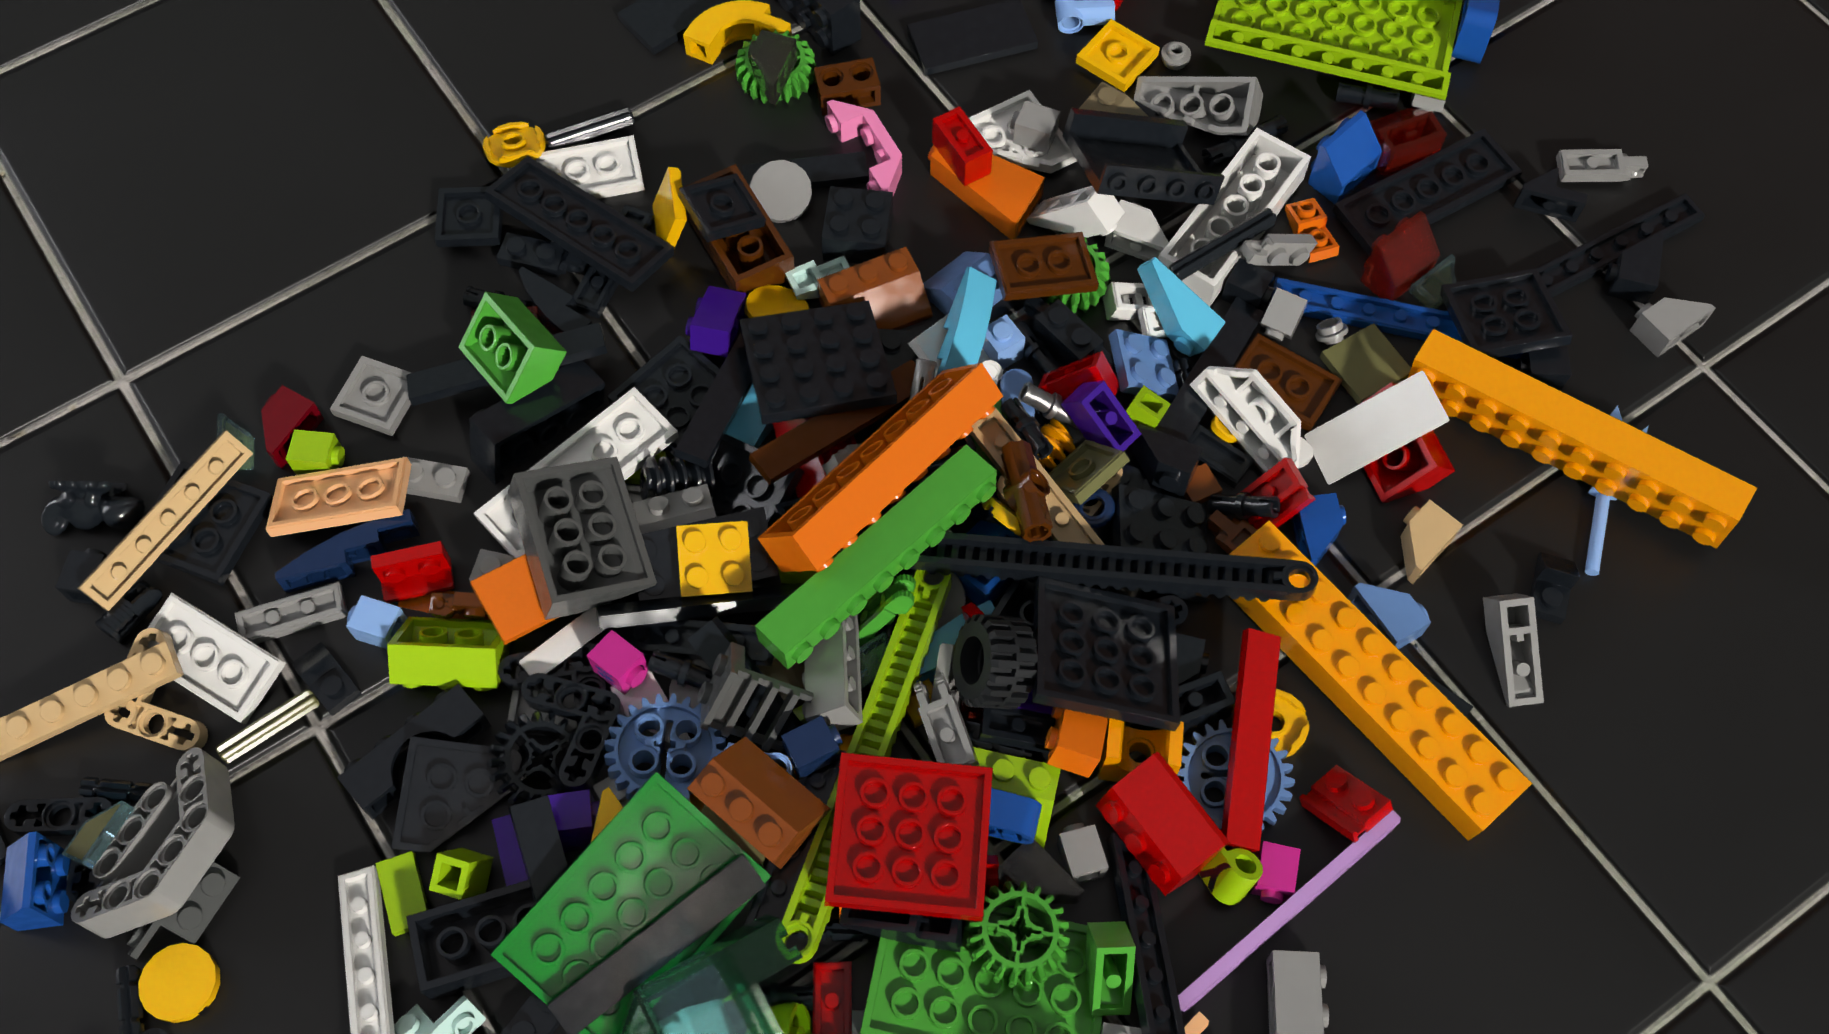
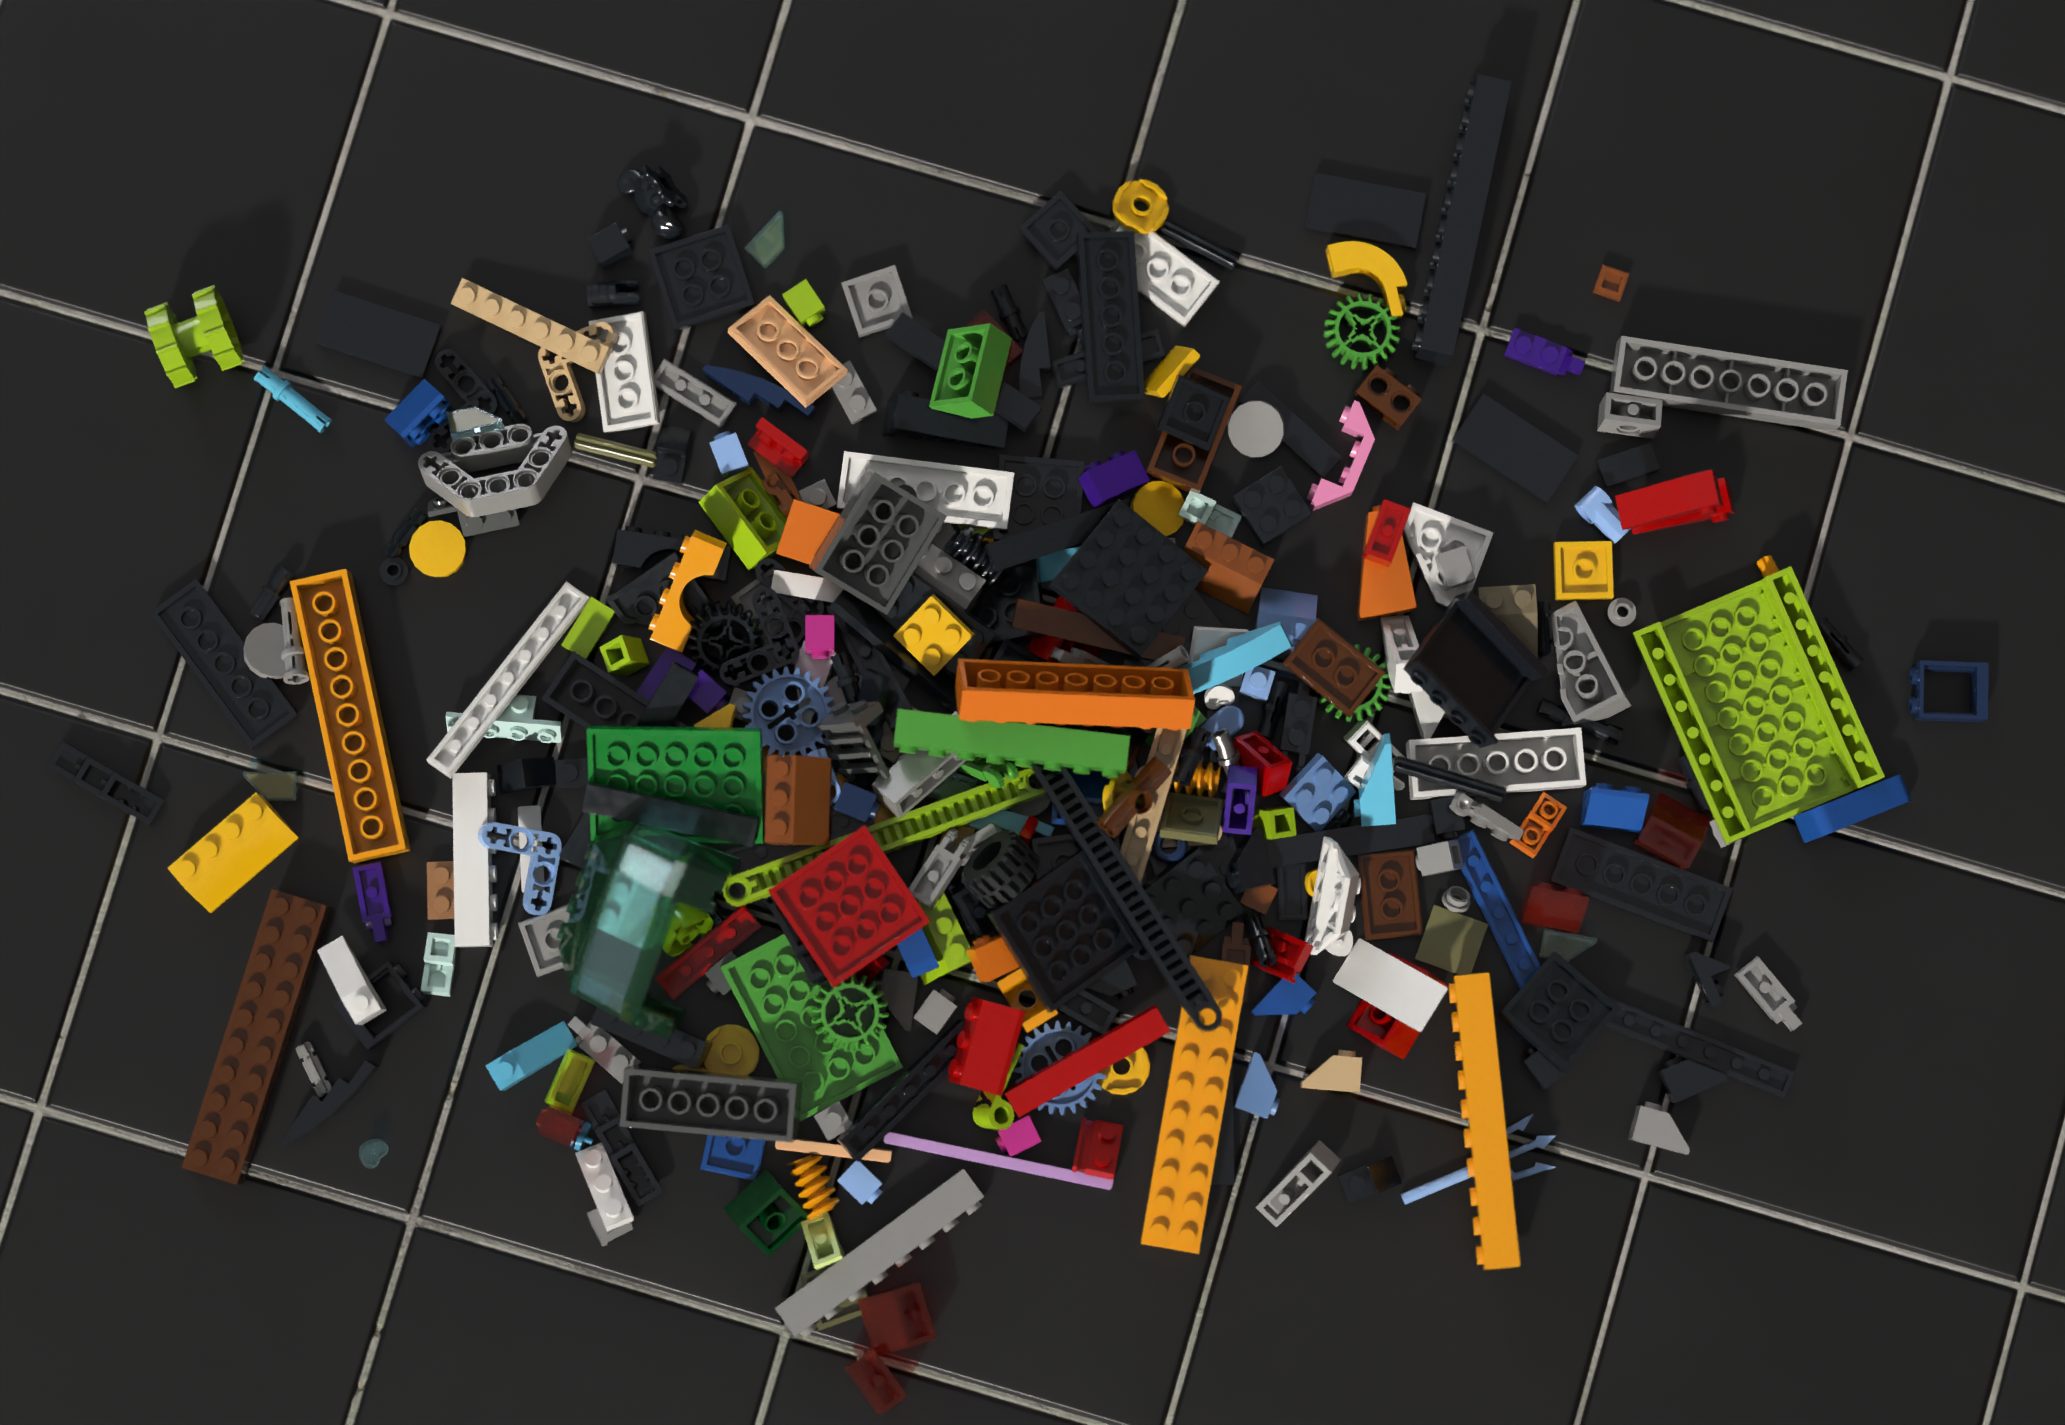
camera: 50 degrees right, 20 degrees up
(165, 521) = (682, 263): tan plate -> none
(282, 415) = (809, 262): dark red slope -> none
(437, 709) = (700, 558): none -> light orange arch
(772, 62) = (1350, 336): clear smoke slope -> none
(1109, 967) = (874, 1080): bright green slope -> none

